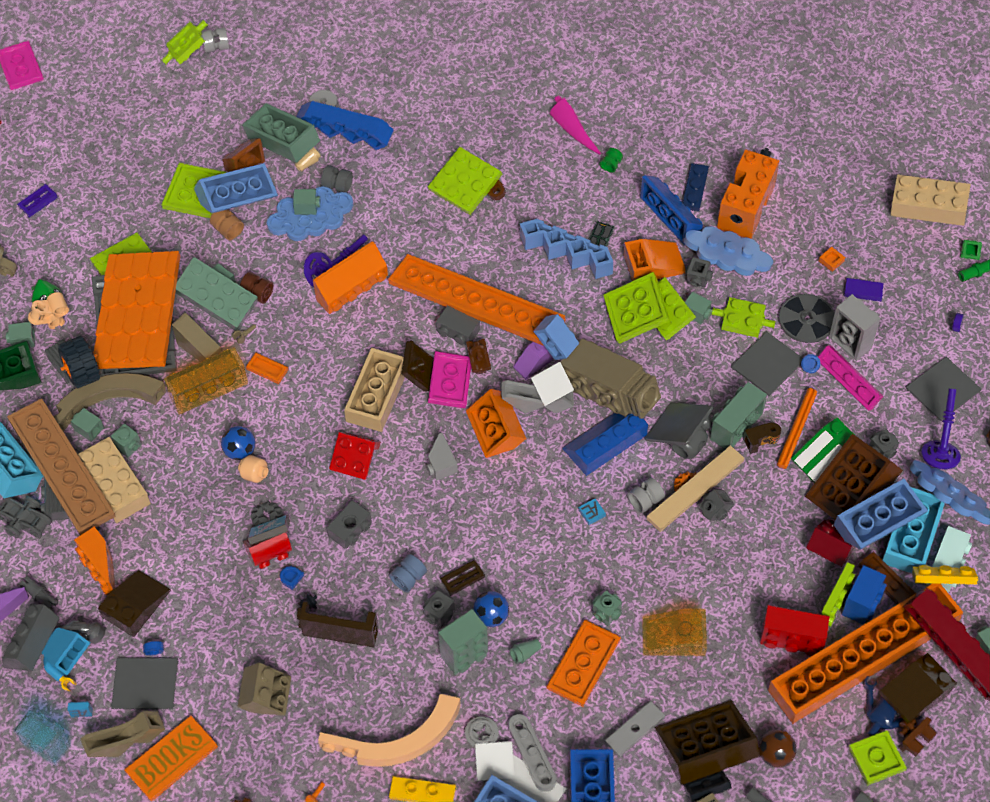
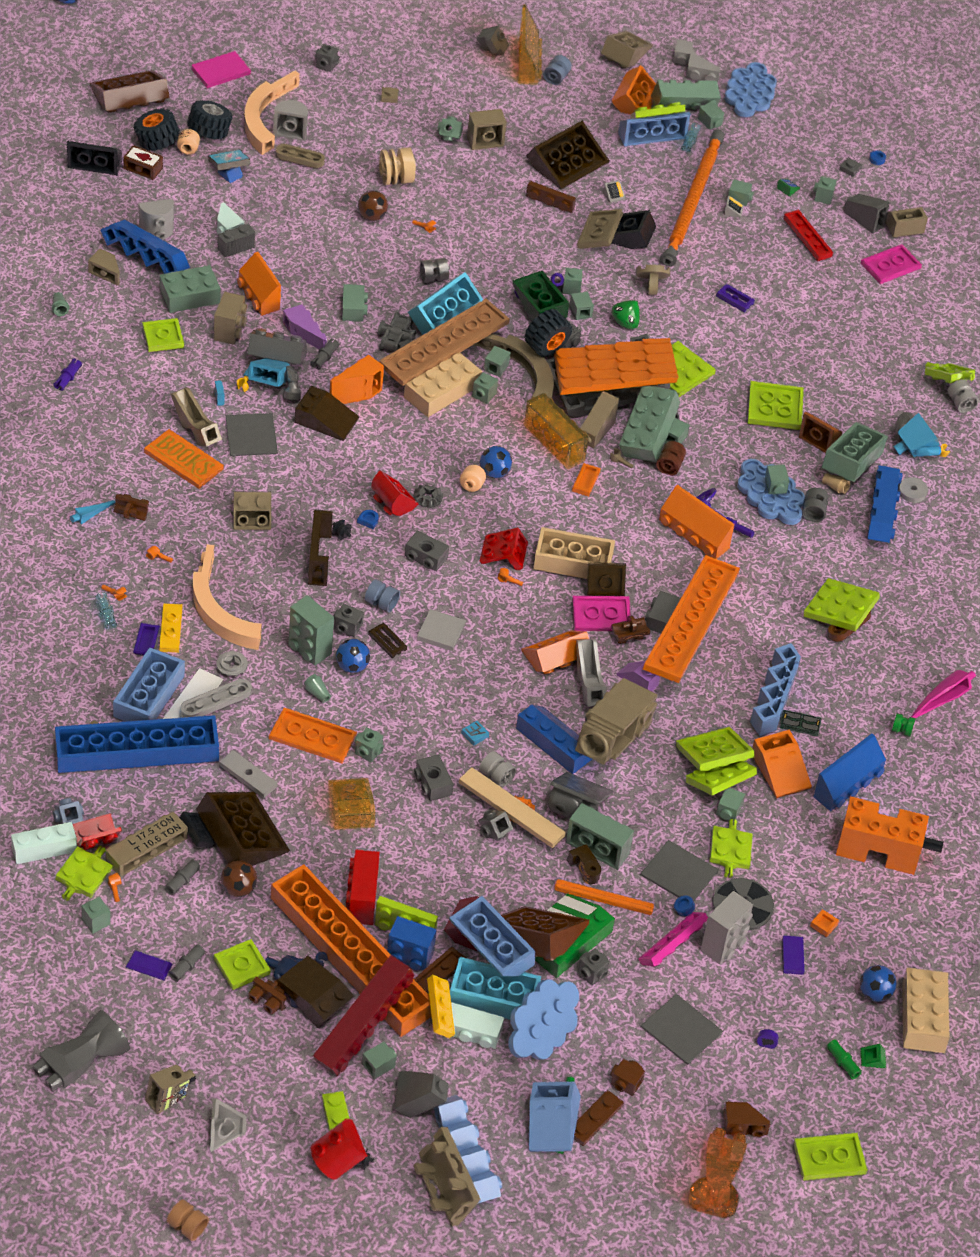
camera: 75 degrees right, 10 degrees down
(42, 736) = (188, 367): clear light blue brick -> none
(50, 311) = (607, 316): light nougat piece -> none
(153, 648) = (282, 432): blue tile -> none
(227, 224) = (740, 429): medium nougat wheel -> none
(235, 188) = (777, 425): medium blue slope -> none
(262, 84) = (917, 437): none -> dark azure torso
(268, 530) = (405, 488): tile -> none
(388, 459) = (504, 576): none -> orange hand
(441, 459) = (510, 611): light grey slope -> none
(454, 525) = (441, 630): none -> light grey tile
(494, 760) = (205, 674): white sticker -> none
(552, 383) = (601, 677): white sticker -> none
(556, 337) = (649, 668): medium blue brick -> none
(658, 546) = (433, 777): none -> dark grey brick
(695, 186) = (893, 801): dark blue plate -> none
(699, 272) = (773, 800): dark grey brick -> none
(728, 250) = (807, 826): medium blue plate -> none
(903, 228) = (878, 983): none -> blue piece
(943, 448) = (599, 1019): dark purple dish -> none

